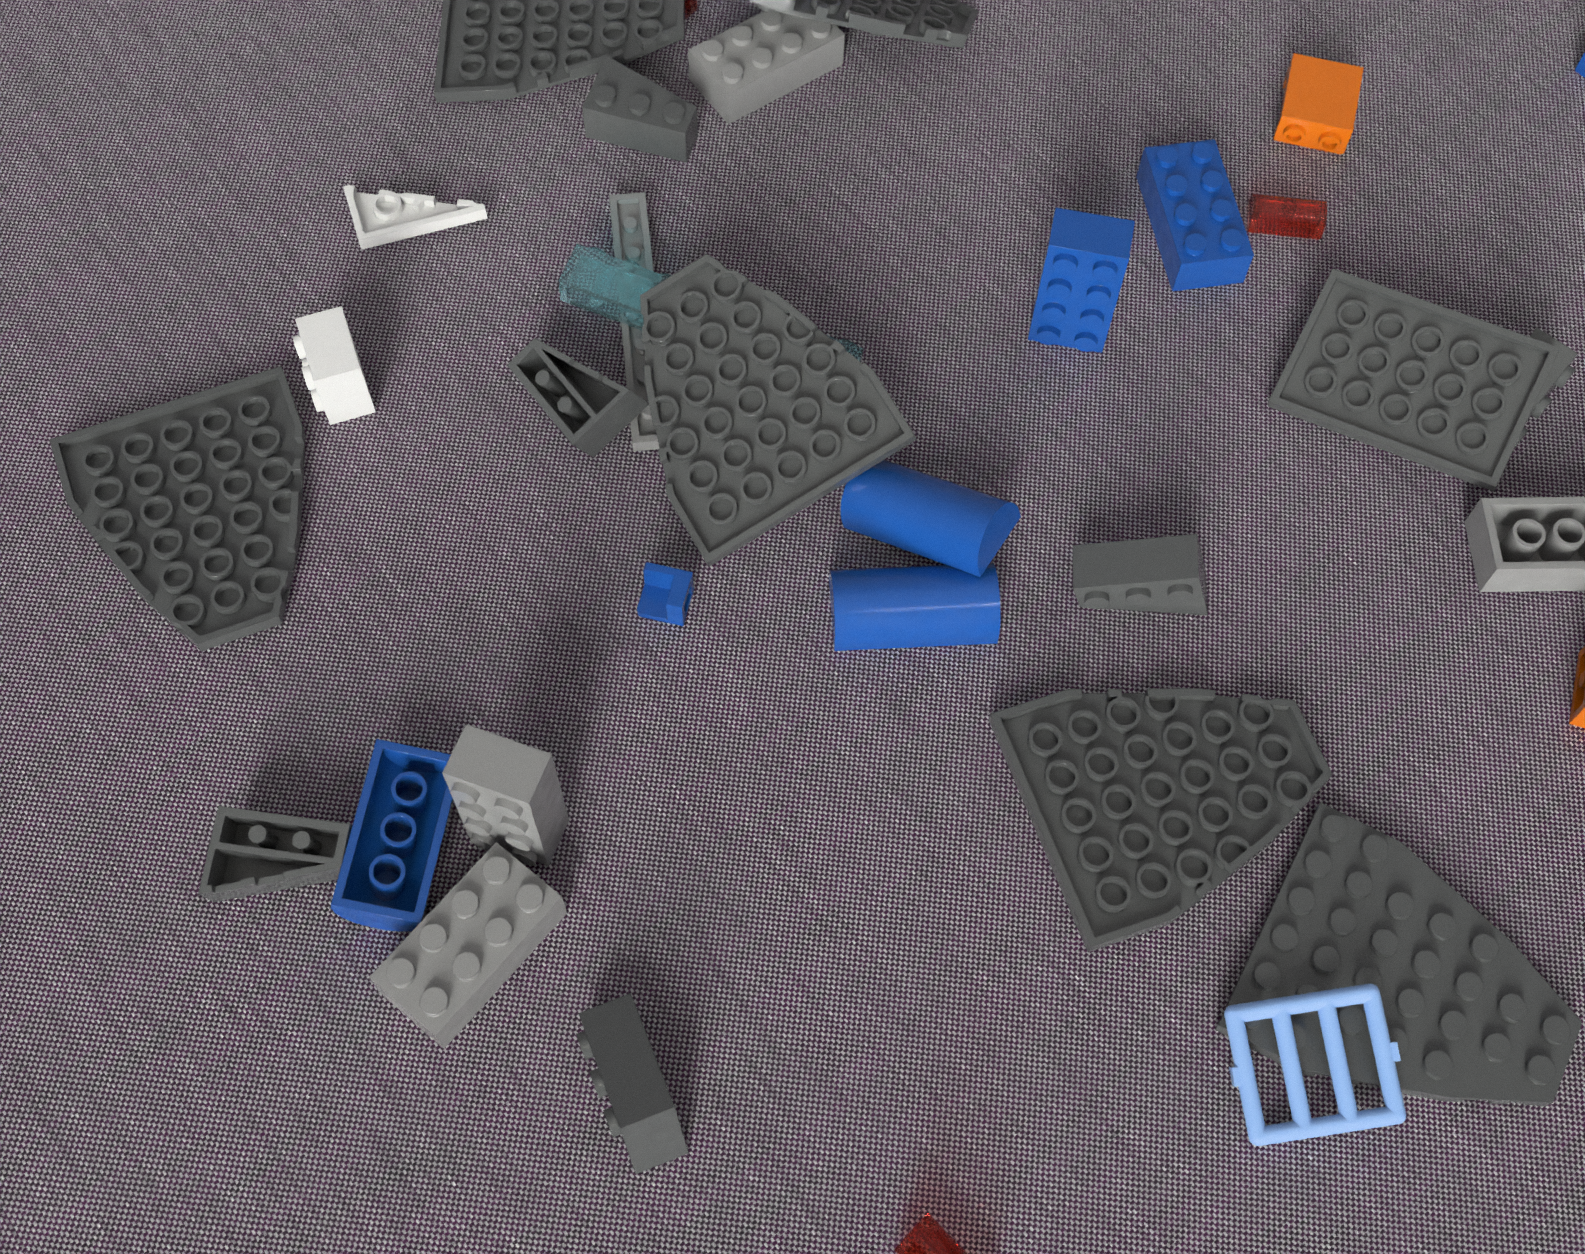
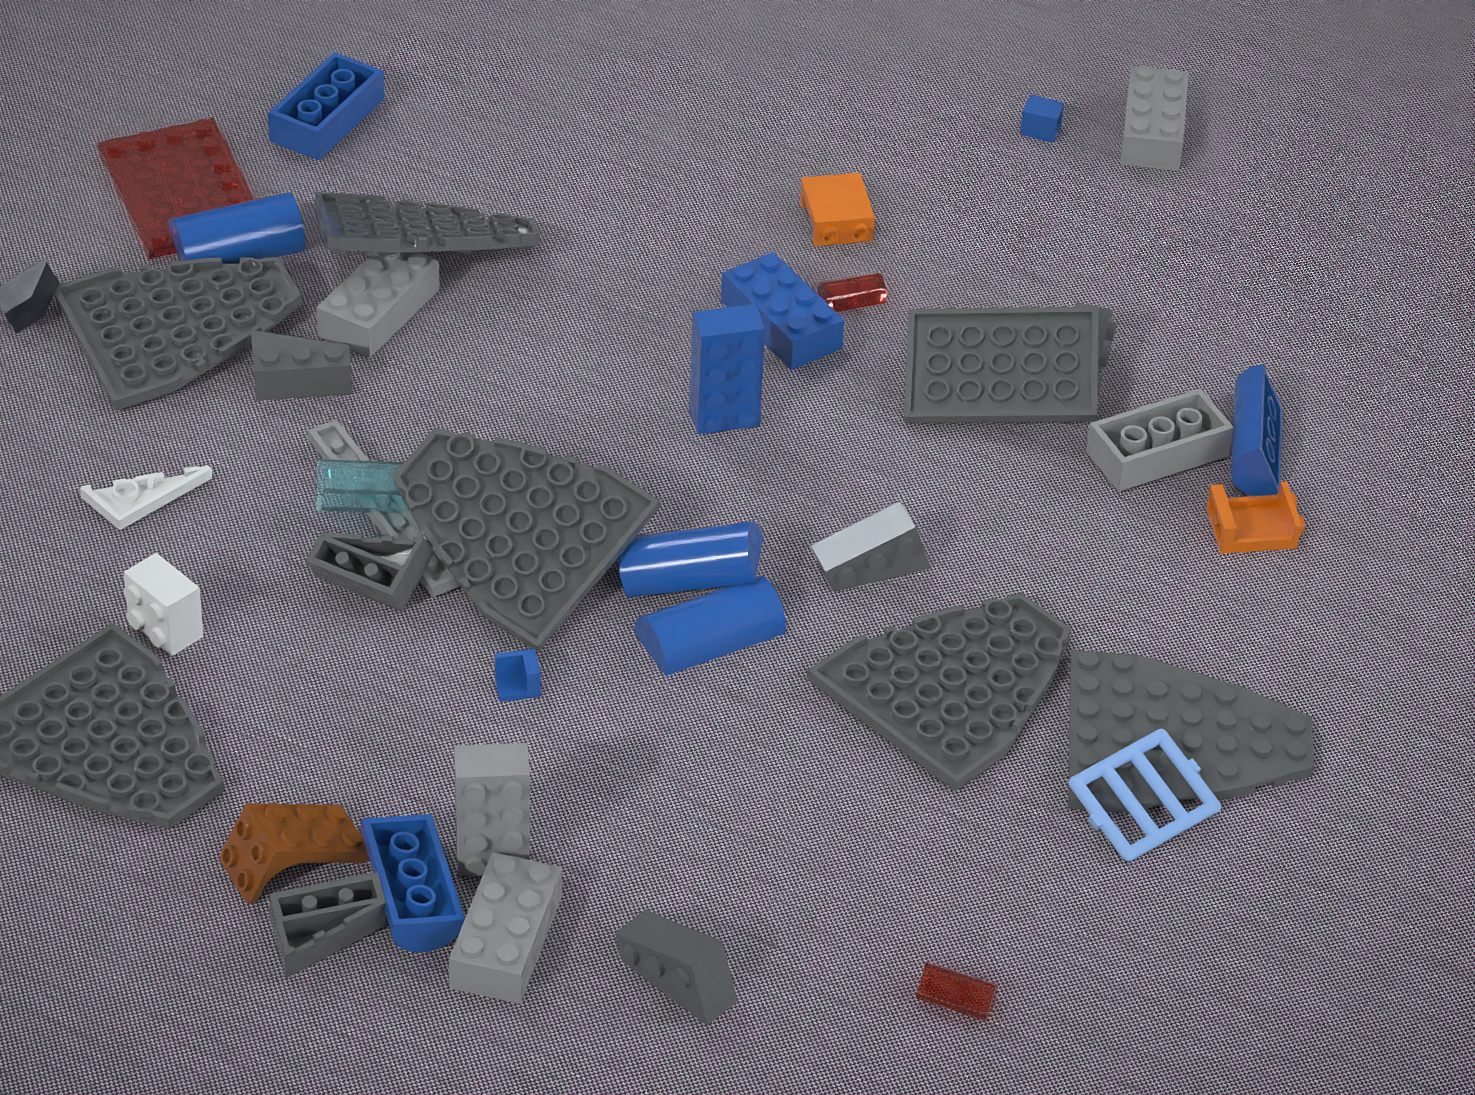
camera: 25 degrees left, 20 degrees down
(302, 728) = (284, 835): none -> dark orange bracket

